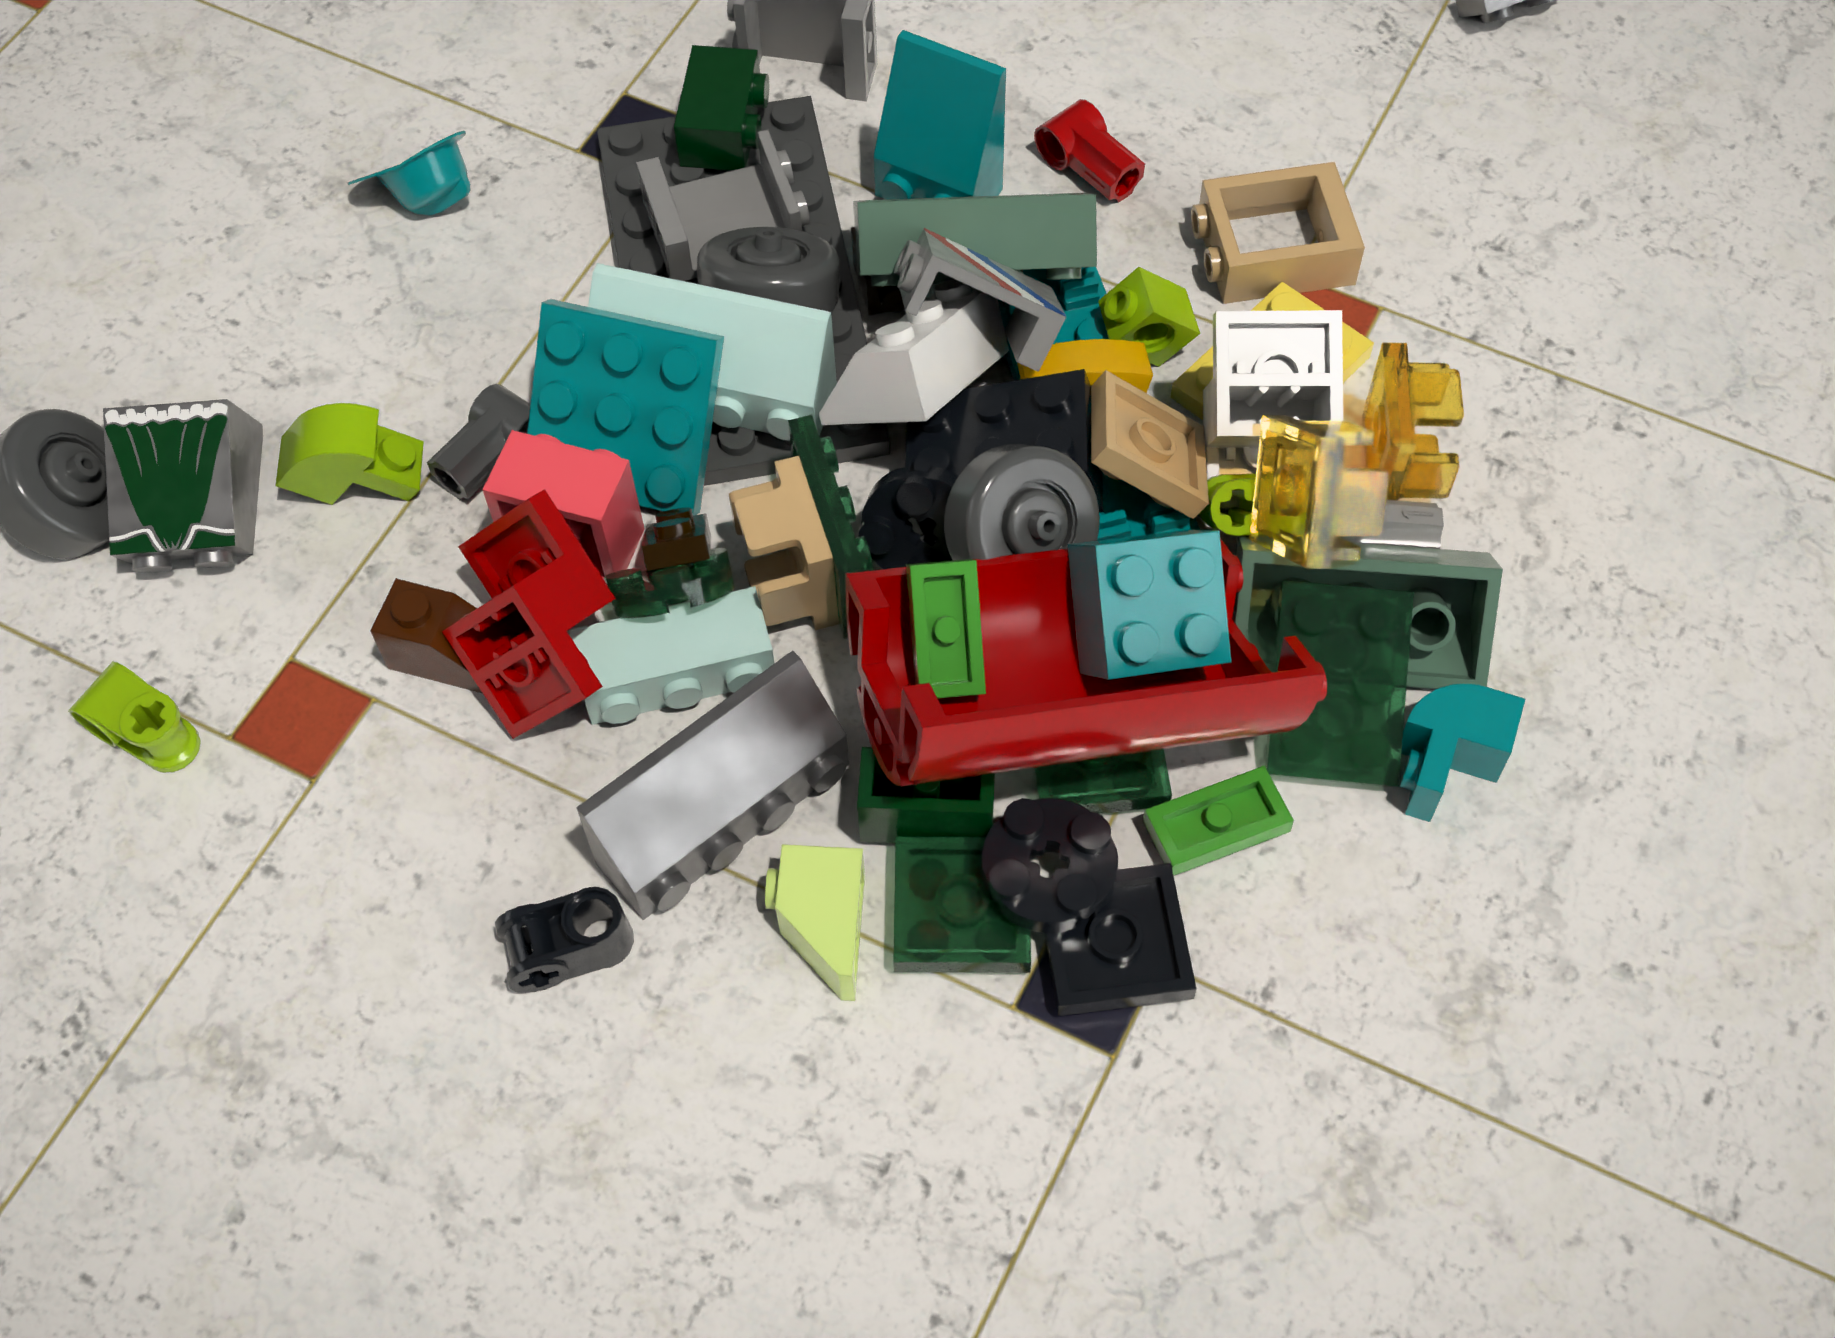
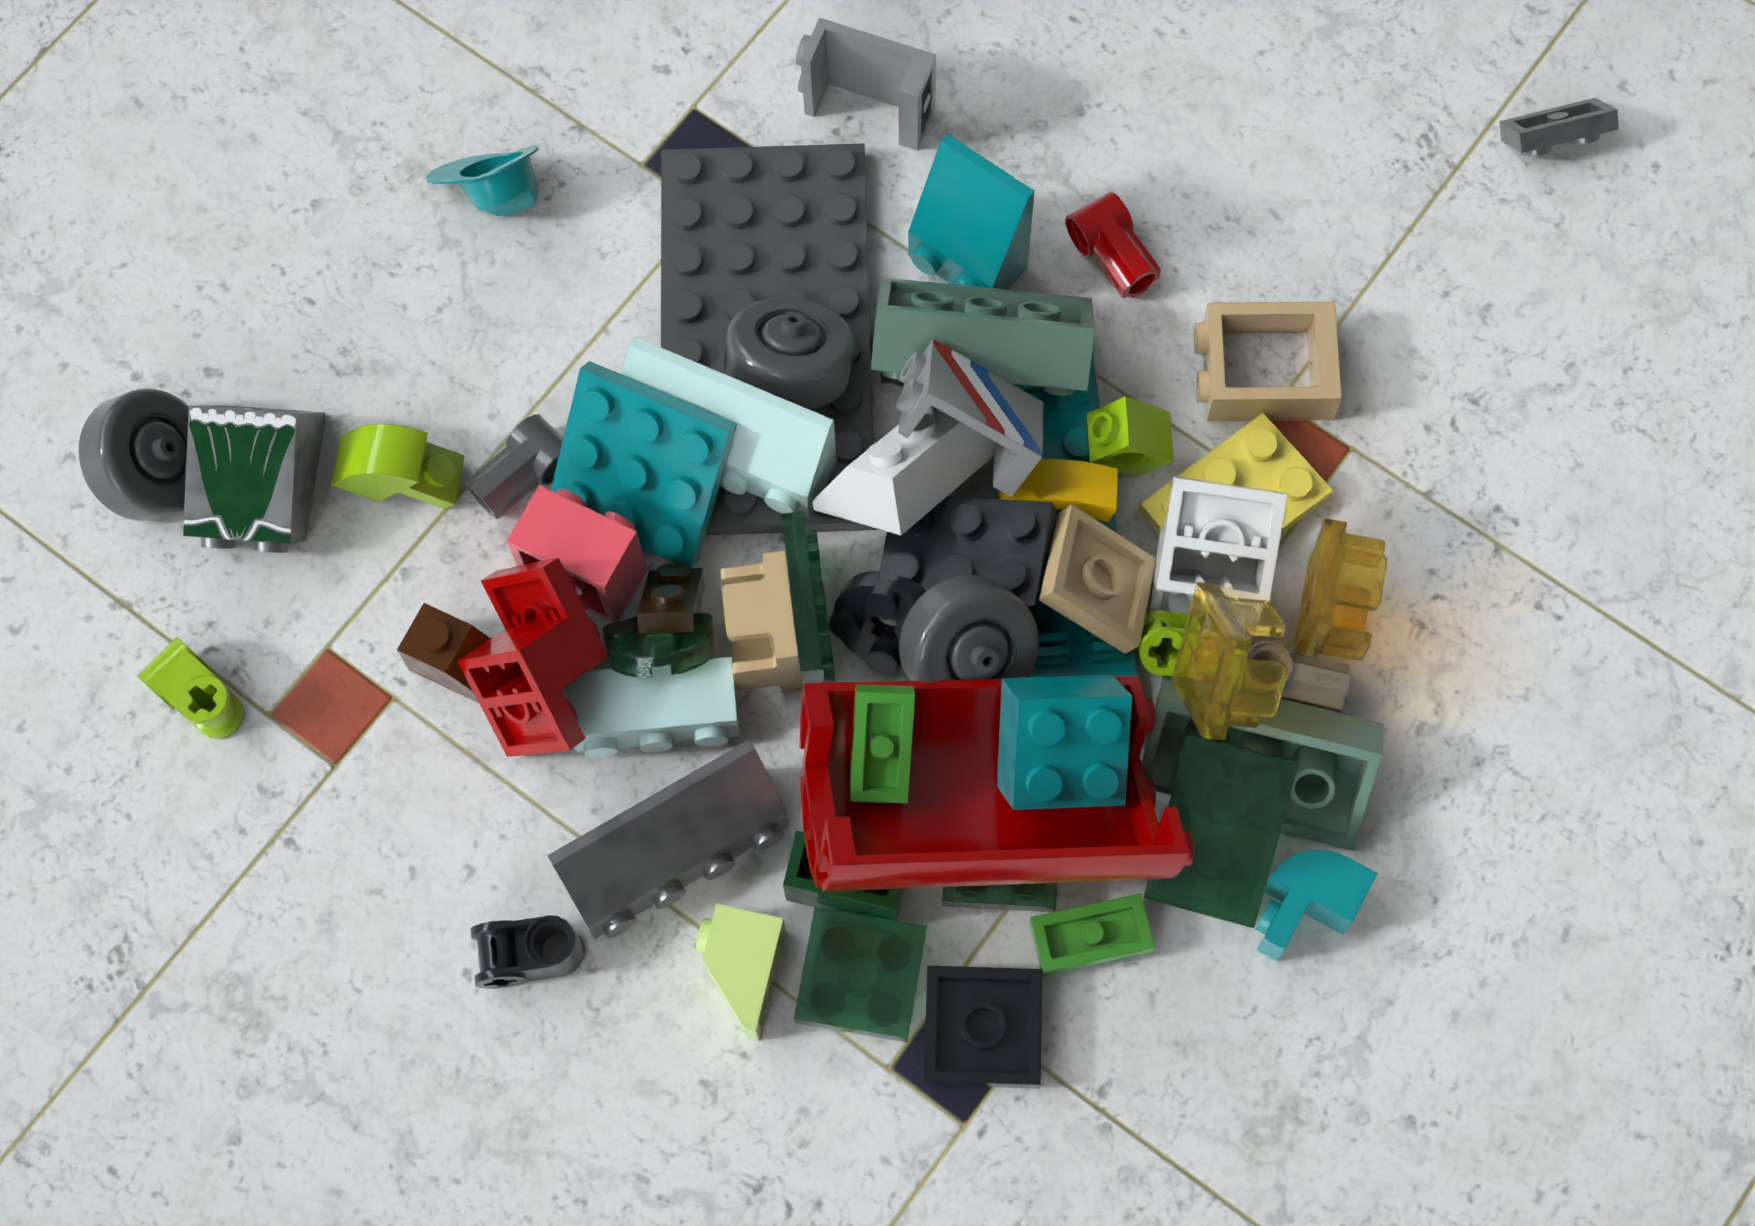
camera: 10 degrees right, 10 degrees up
(703, 208) = (760, 264): light grey panel -> none
(720, 108) = (775, 157): dark green brick -> none
(1057, 827) = (953, 986): black plate -> none

